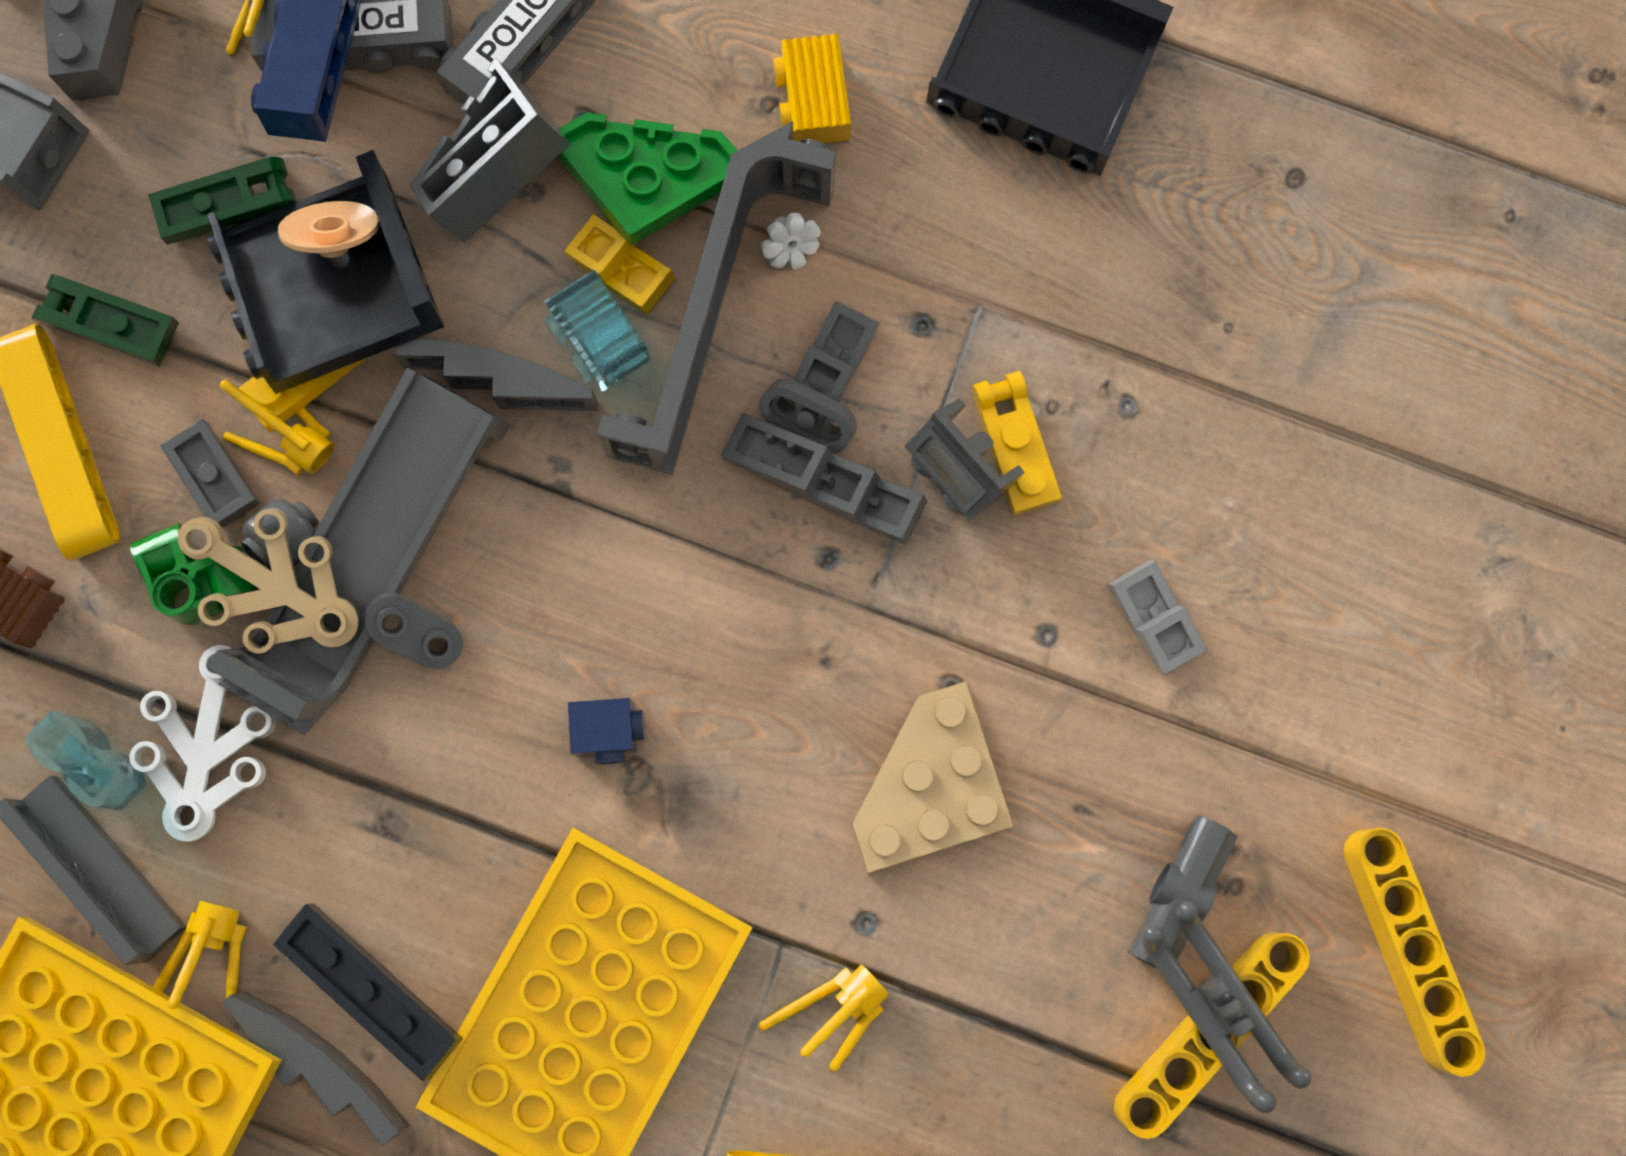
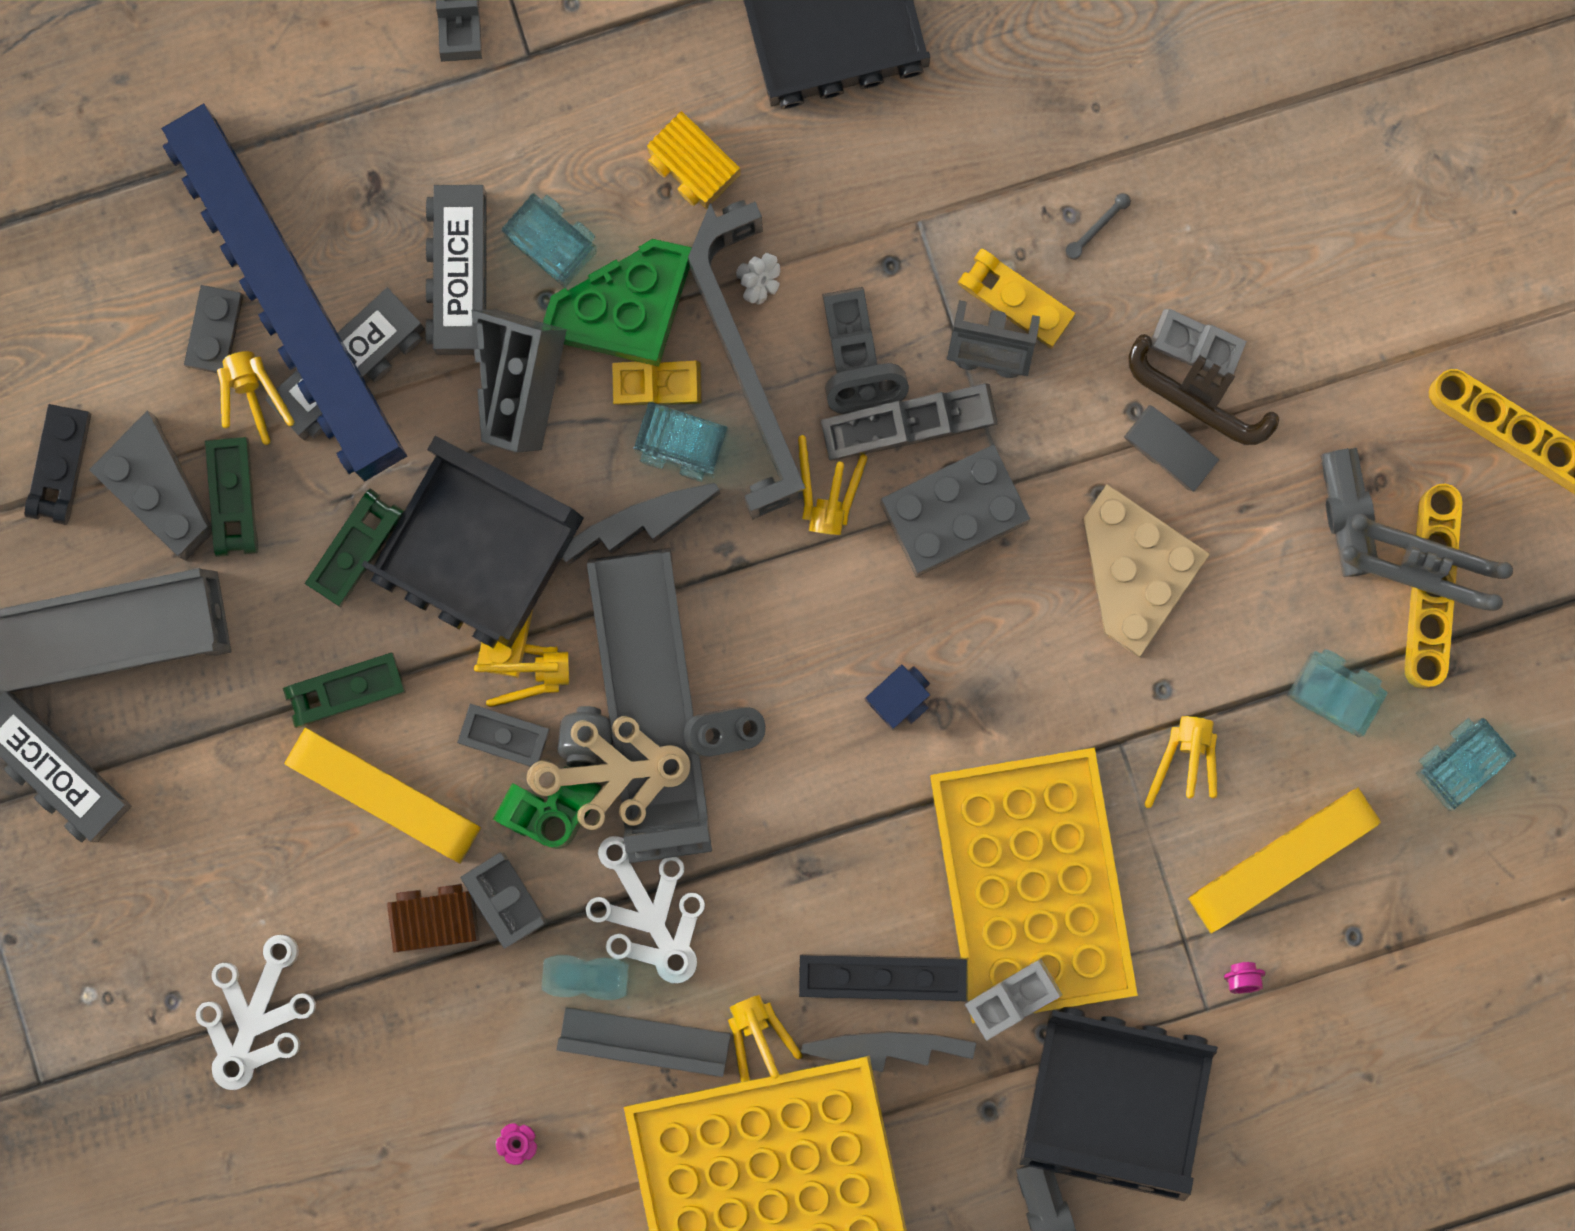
camera: 30 degrees left, 5 degrees up
(73, 625) = (503, 900): none -> dark grey window
(154, 70) = (231, 495): none -> dark green plate
(328, 227) = (451, 510): light nougat dish -> none
(471, 1117) = (1013, 999): none -> light grey slope
(626, 61) = (550, 239): none -> clear light blue brick
(677, 503) = (828, 515): none -> yellow plant
(798, 592) = (955, 510): none -> dark grey brick
(1035, 1065) = (1338, 693): none -> clear light blue brick
(1055, 696) = (1171, 448): none -> dark grey slope
(1106, 440) = (1074, 249): none -> dark grey hinge
(1120, 664) = (1199, 395): none -> dark brown piece

